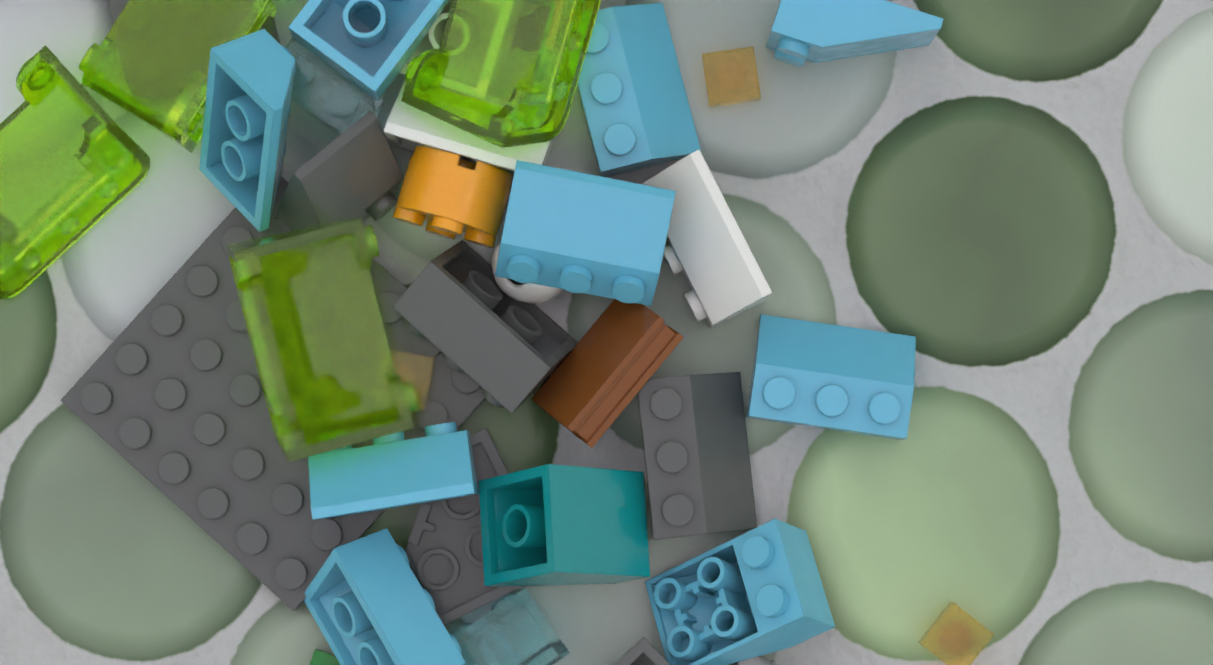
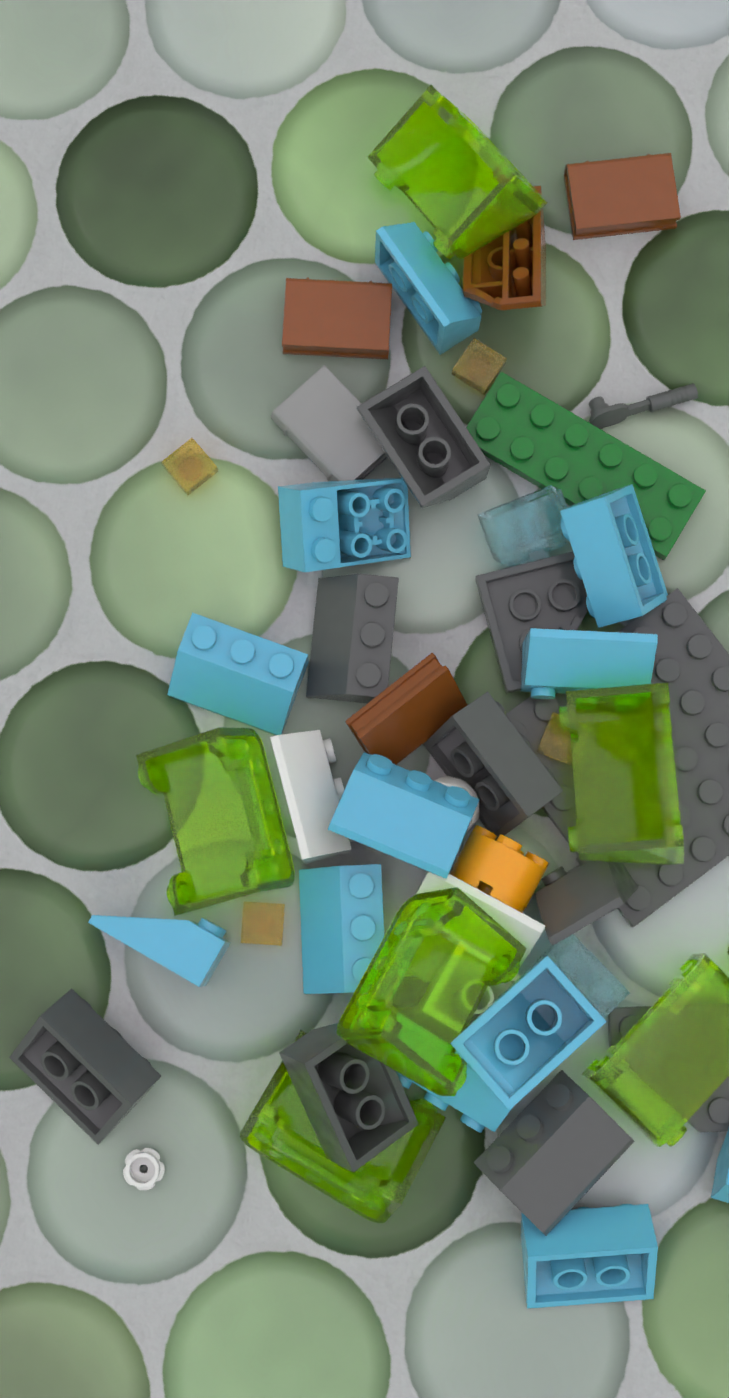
camera: 170 degrees left, 5 degrees down
(247, 122) = (649, 957): medium azure slope -> none
(564, 527) = (464, 600): teal slope -> none
(810, 189) = (220, 818): none -> clear neon green windscreen

